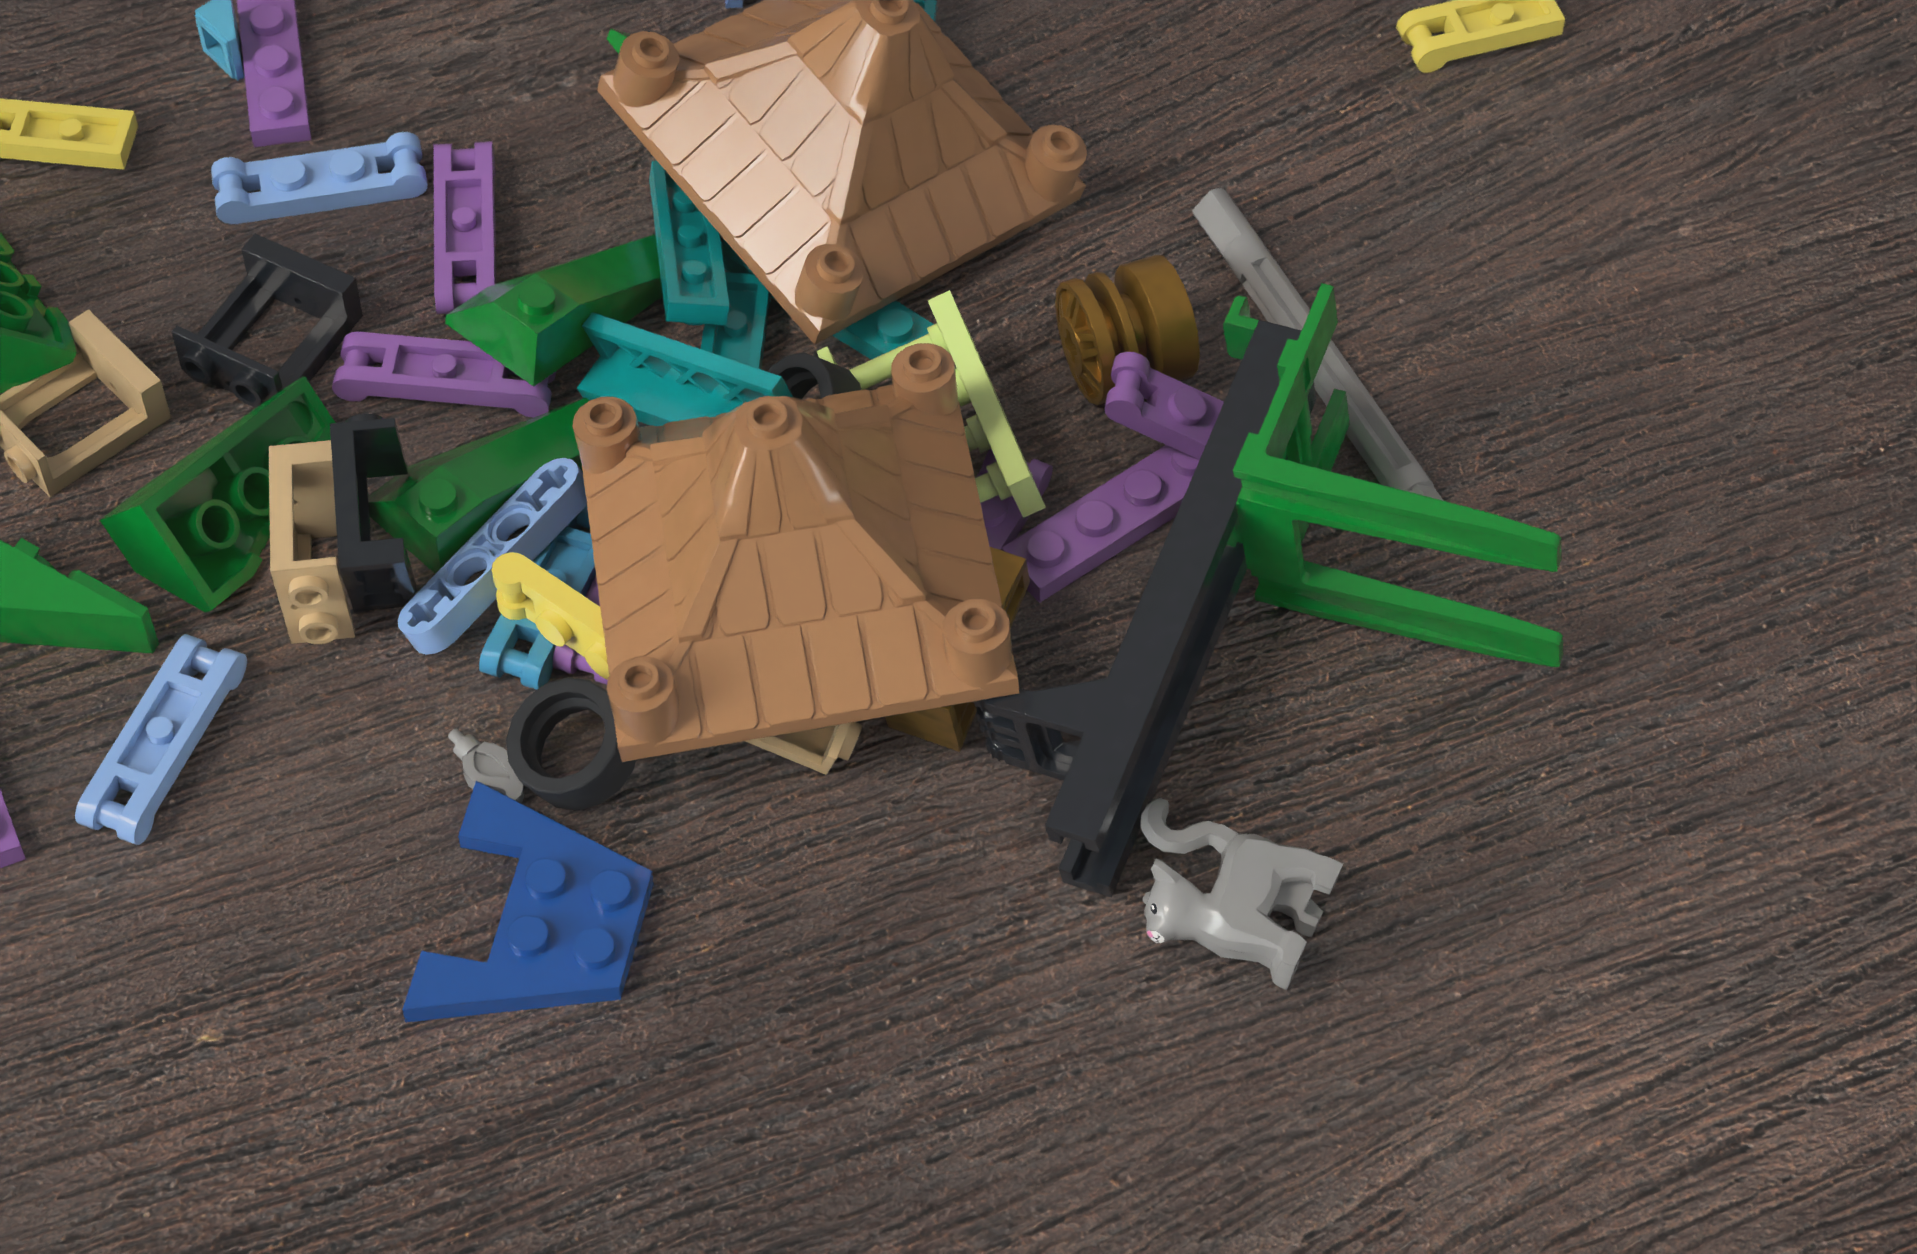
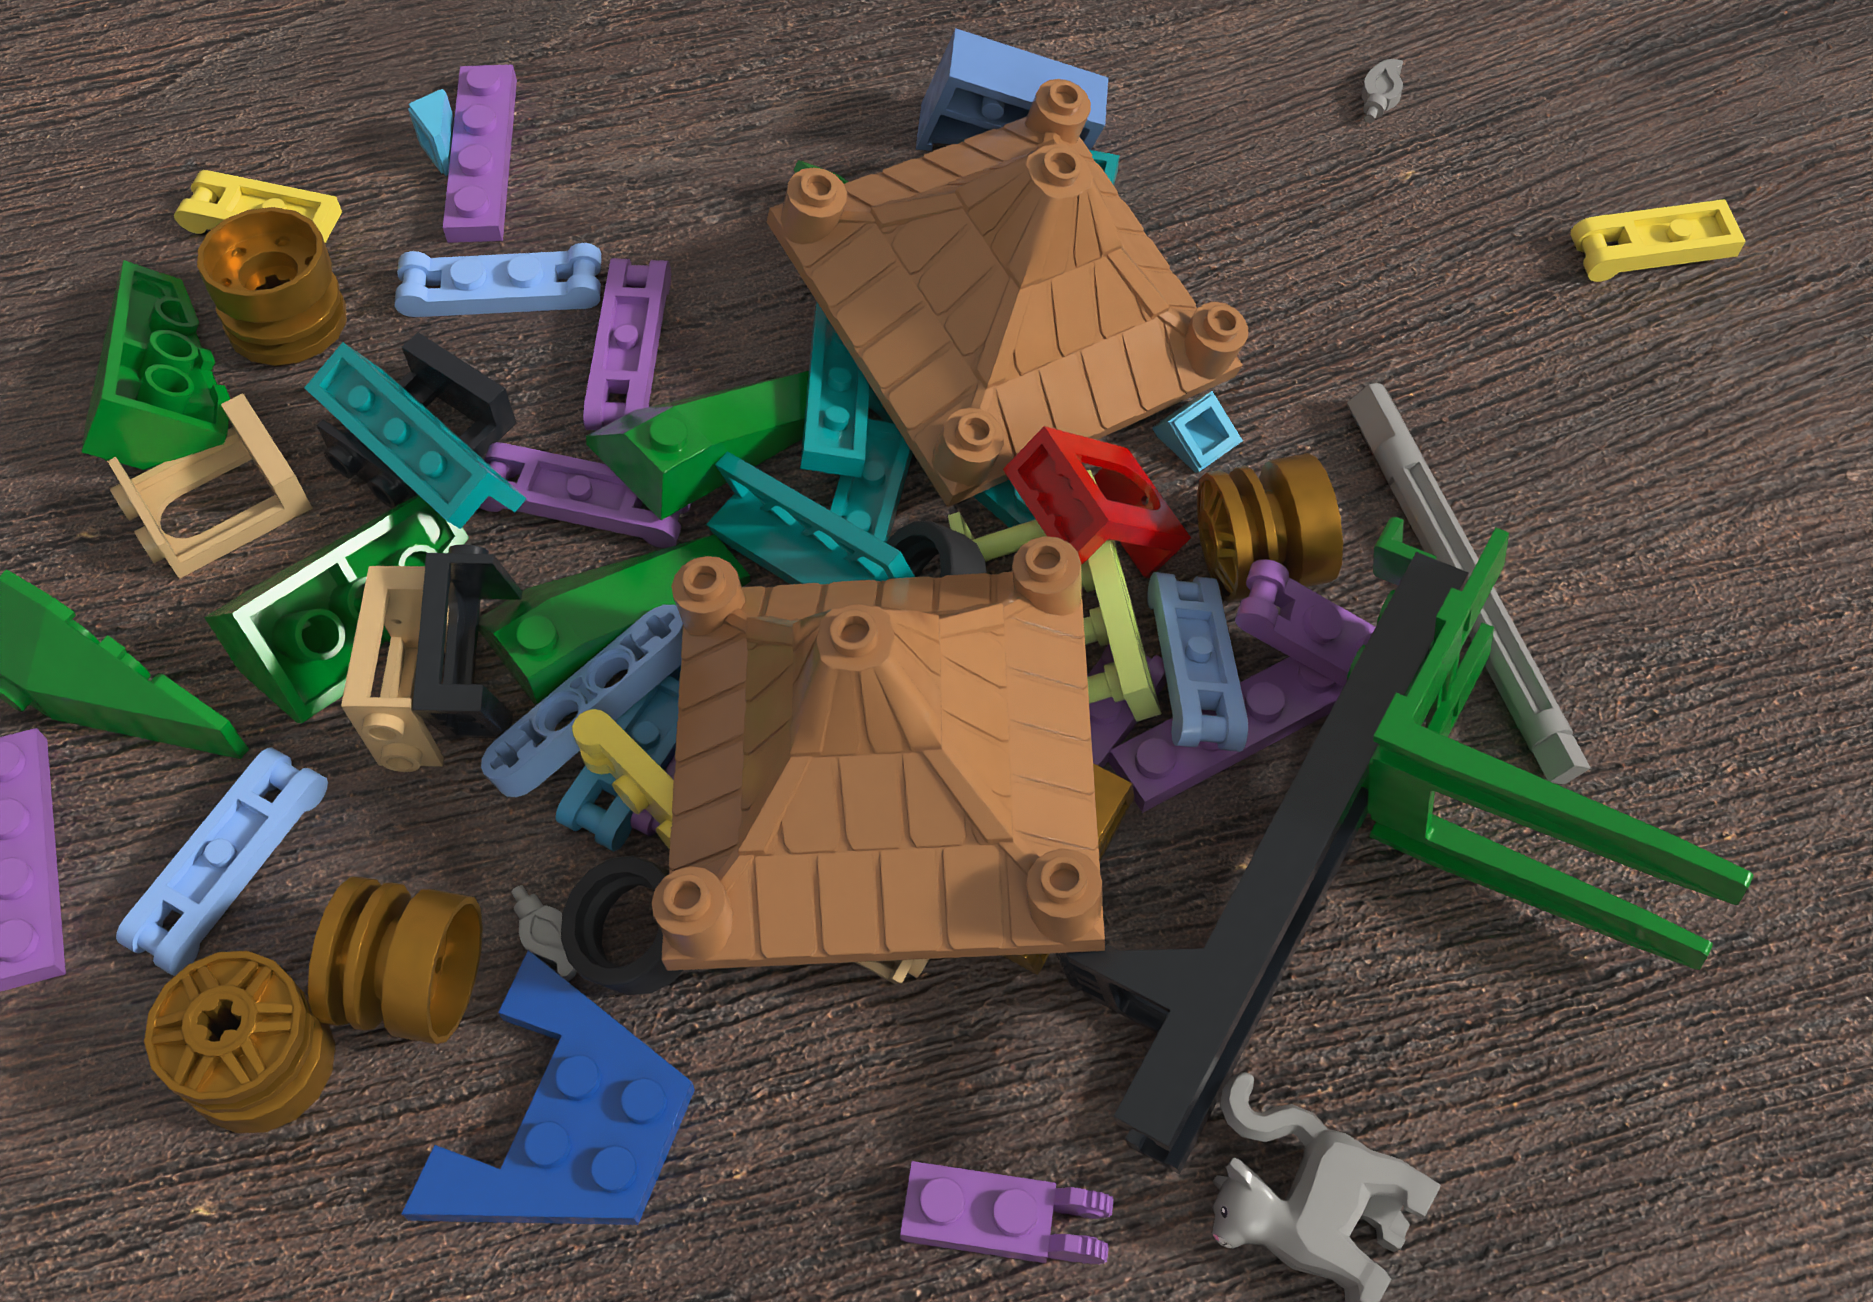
camera: 10 degrees right, 5 degrees up
(95, 203) = (272, 285): none -> pearl gold wheel
(226, 880) = (239, 1042): none -> pearl gold wheel
(269, 331) = (408, 437): none -> teal fence
(350, 791) = (395, 959): none -> pearl gold wheel
(923, 310) = (1086, 515): none -> red panel
(956, 947) = (999, 1215): none -> medium lavender hinge
(1050, 253) = (1198, 432): none -> medium azure slope
(1074, 456) = (1198, 662): none -> light blue plate

